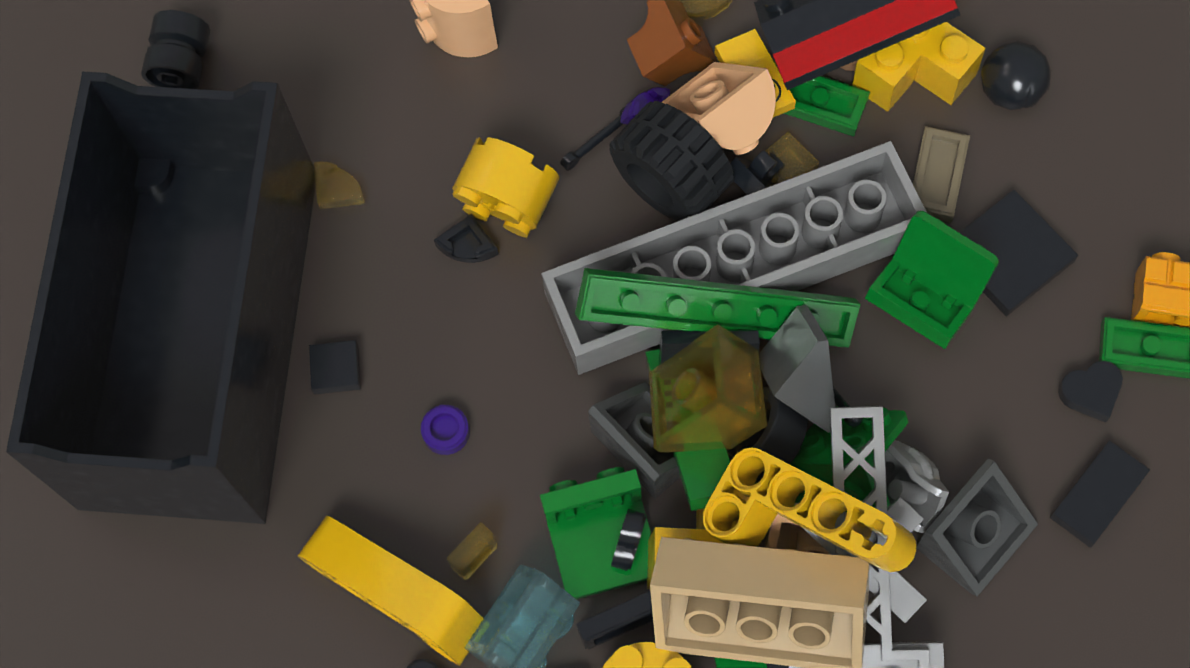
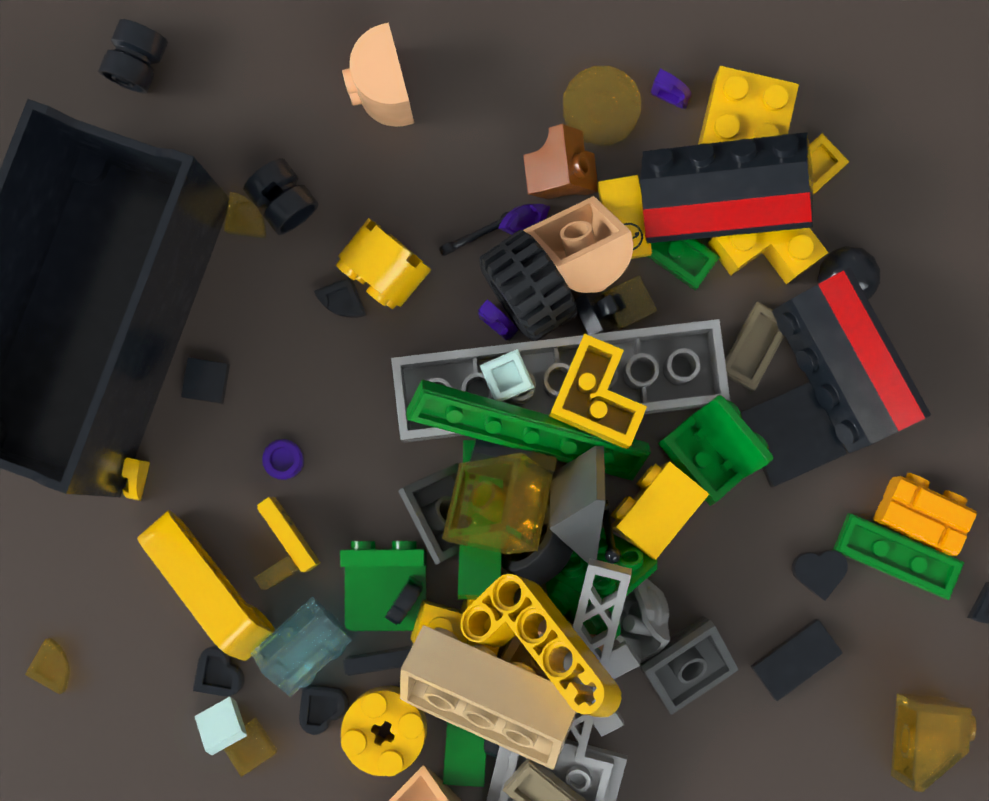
camera: 15 degrees right, 15 degrees up
(279, 481) = (136, 472): none -> yellow tile
(367, 145) = (283, 200): none -> black wheel
(473, 505) = (288, 534): none -> yellow tile
(643, 214) = (497, 320): none -> dark purple tile
(676, 254) = (507, 376): none -> light aqua tile
(781, 253) = (588, 403): none -> yellow brick
(887, 354) = (658, 509): none -> yellow brick
(1048, 151) = (850, 361): none -> black slope

